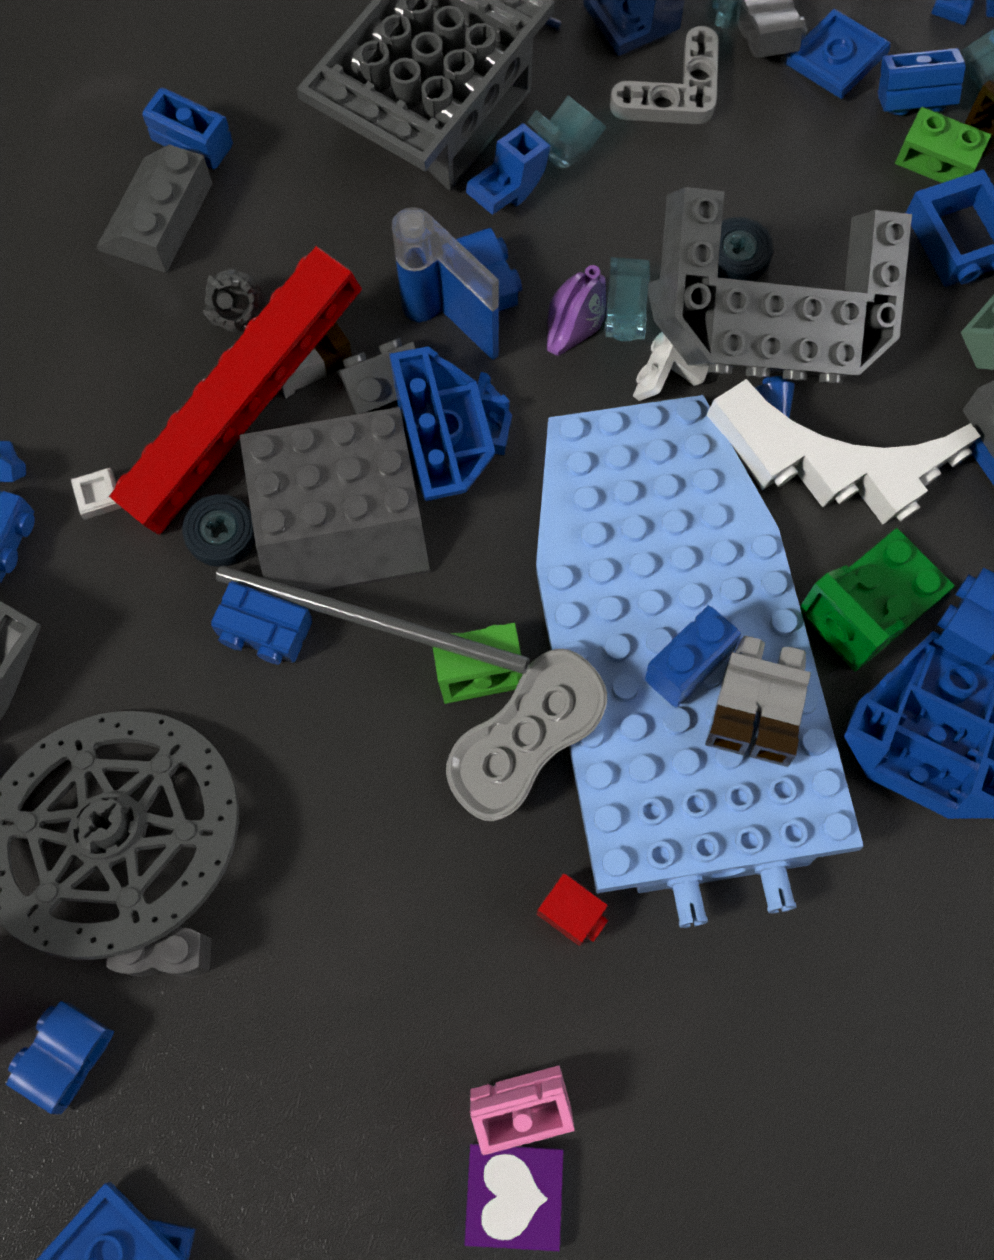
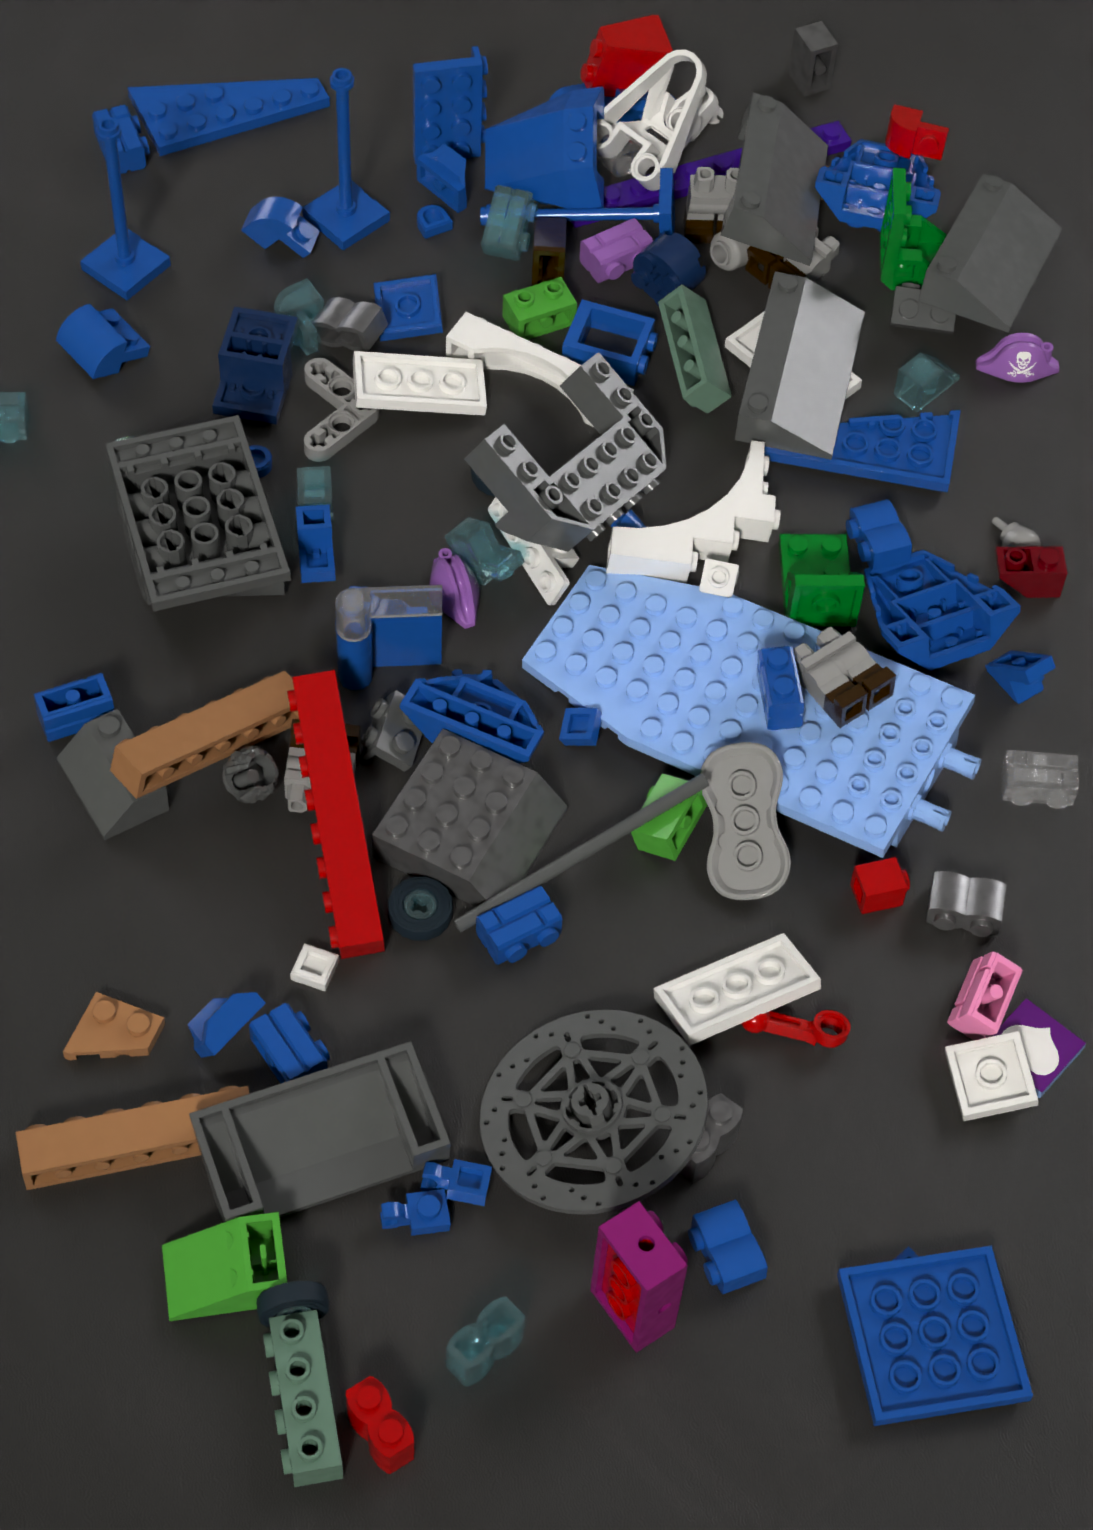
camera: 55 degrees left, 15 degrees down
(217, 230) = (204, 735): none -> medium nougat brick
(332, 903) = (803, 1029): none -> red piece
(344, 862) = (736, 988): none -> white plate
(439, 1181) = (991, 1076): none -> white plate
(518, 517) = (580, 726): none -> blue plate
(565, 70) = (262, 459): none -> blue tile
(623, 1011) = (966, 903): none -> flat silver brick
(761, 119) = (419, 383): none -> white plate
(788, 511) = (719, 578): none -> white bracket
(836, 979) = (1039, 778): none -> clear brick
(856, 140) = (504, 350): none -> white arch
(921, 80) = (481, 280): blue brick -> none
(948, 867) = (1021, 673): none -> blue slope

